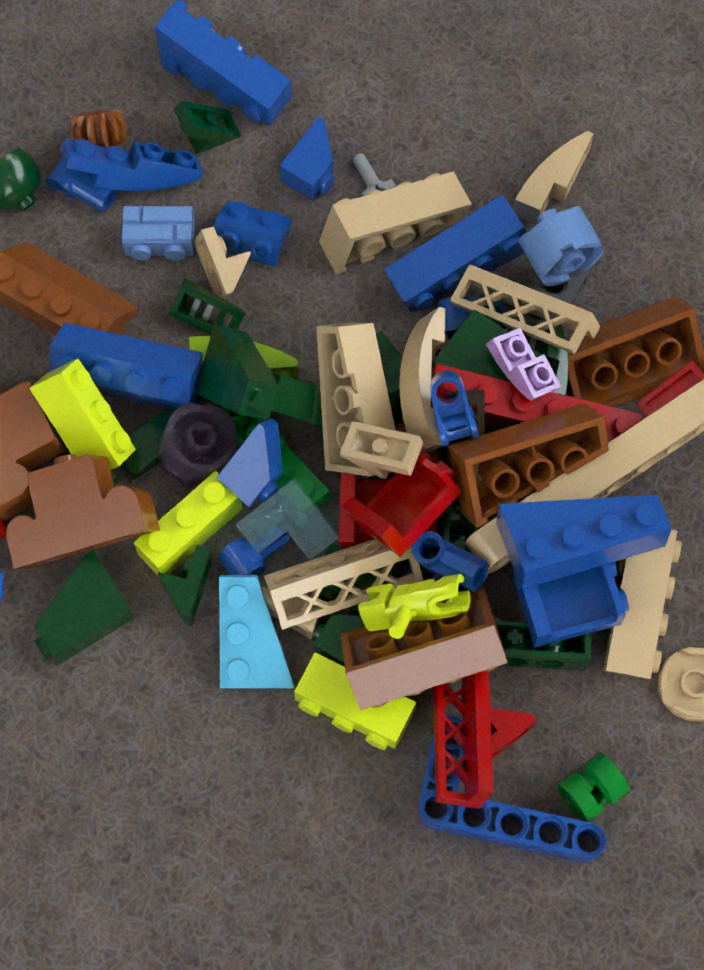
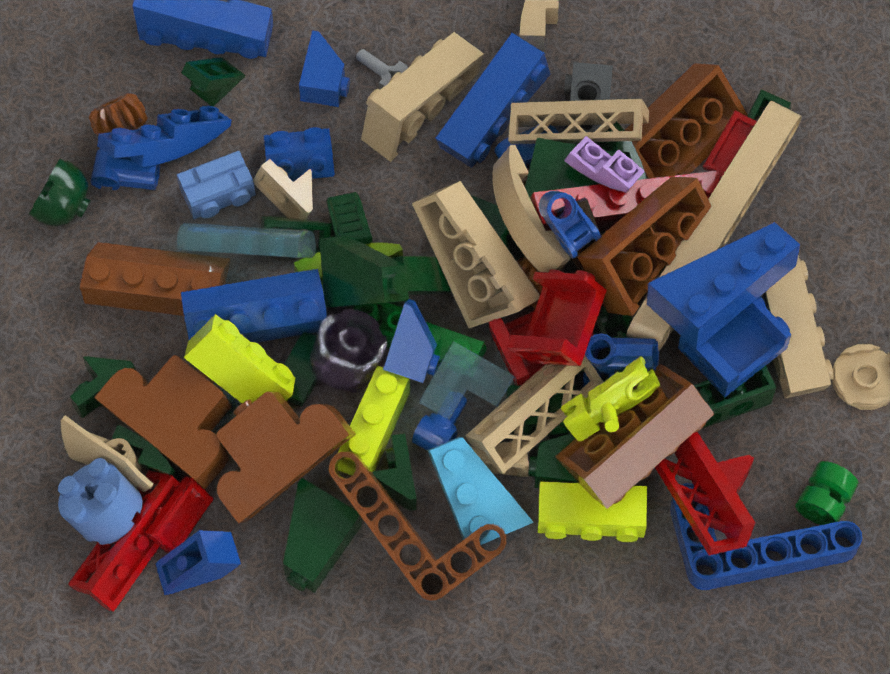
camera: 25 degrees left, 5 degrees down
(154, 297) = (246, 240): none -> clear light blue brick
(163, 647) = (407, 535): none -> dark orange beam
(264, 312) = (348, 217): none -> dark green slope
(381, 449) = (520, 282): tan slope -> none
(561, 245) = (583, 55): medium blue brick -> none

